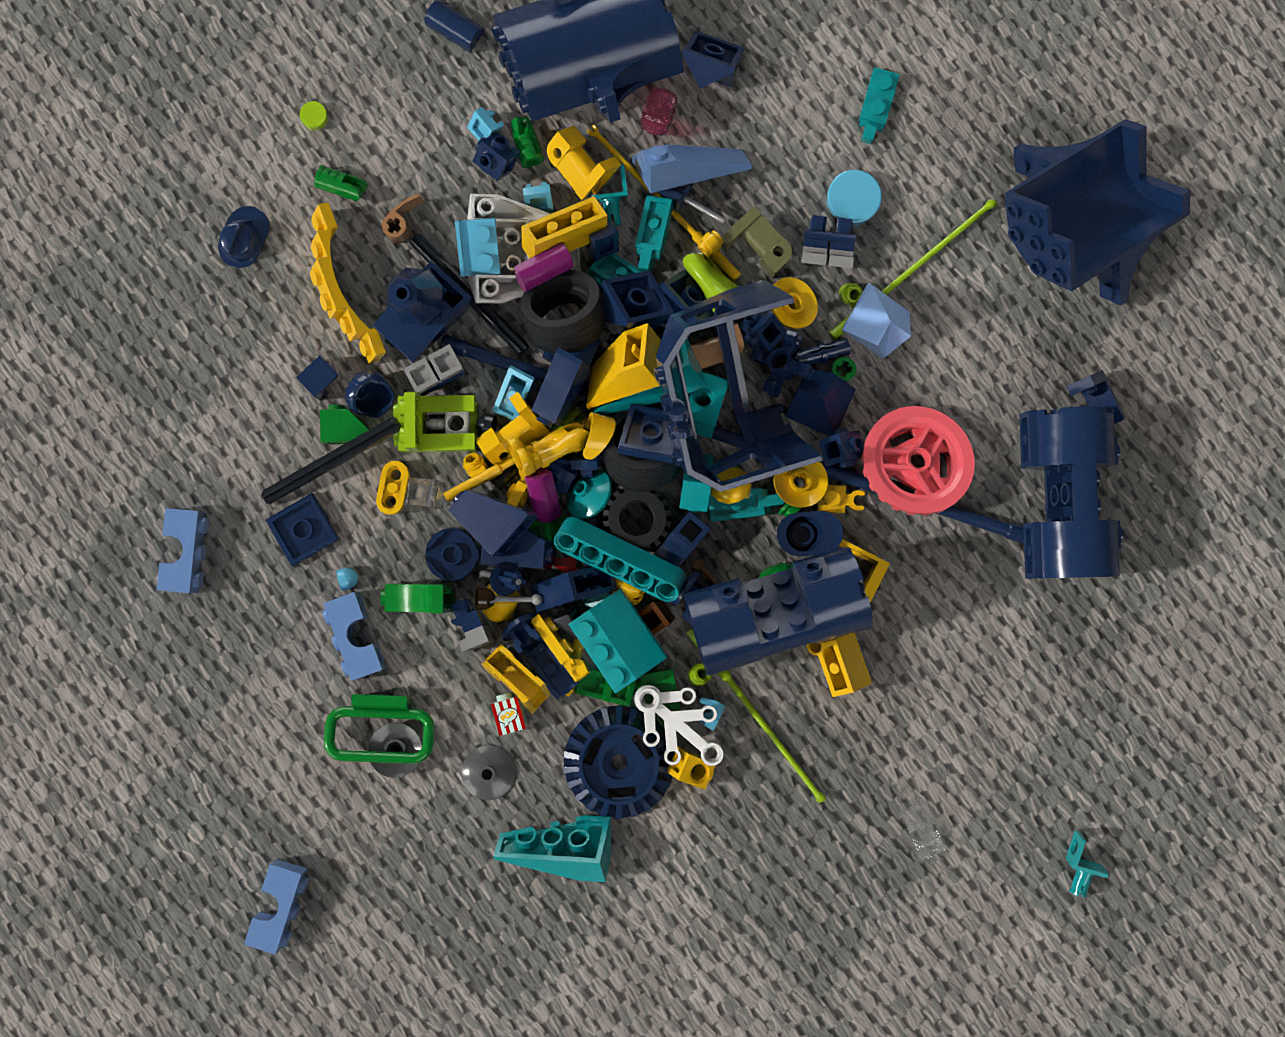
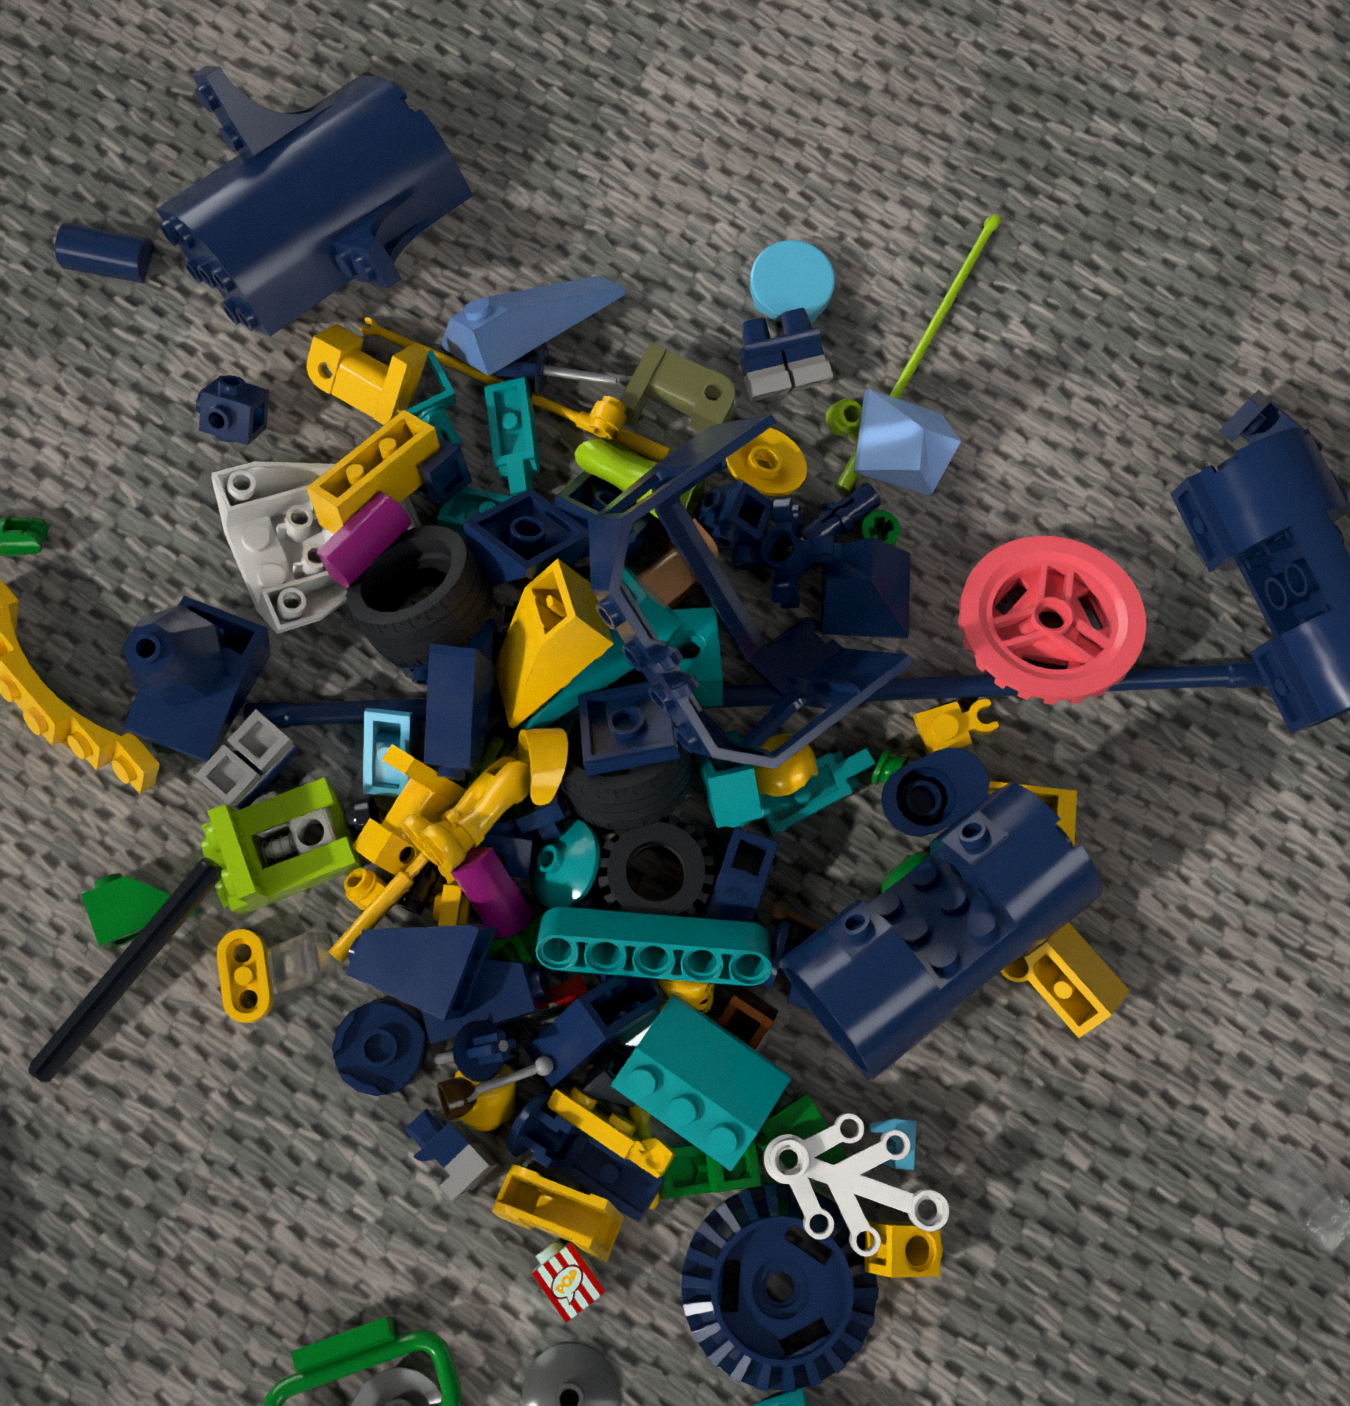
camera: 25 degrees left, 10 degrees down
(302, 529) = (117, 1103): dark blue tile -> none
(317, 377) = (61, 845): dark blue panel -> none
(342, 616) = (231, 1224): medium blue arch -> none
(347, 578) = (217, 1155): medium azure hinge -> none
(369, 394) = (155, 840): dark blue hair -> none
(395, 218) = (108, 556): medium nougat panel -> none
(418, 598) = (347, 1140): green arch -> none
(477, 247) = (250, 548): medium azure plate -> none
(483, 125) = (197, 371): medium azure tile -> none
(485, 310) = (290, 642): black axle -> none
(527, 142) = (276, 375): green hinge -> none
(539, 197) = (320, 445): medium azure tile -> none
(658, 111) = (456, 261): clear pink gear -> none
(712, 59) = (509, 167): dark blue slope -> none
(726, 676) = (895, 1073): lime piece -> none
(813, 489) = (909, 718): yellow dish -> none
(842, 448) = (931, 643): dark blue brick -> none
(877, 102) = (770, 144): teal hinge -> none
(1091, 209) = (1139, 177): dark blue cylinder -> none

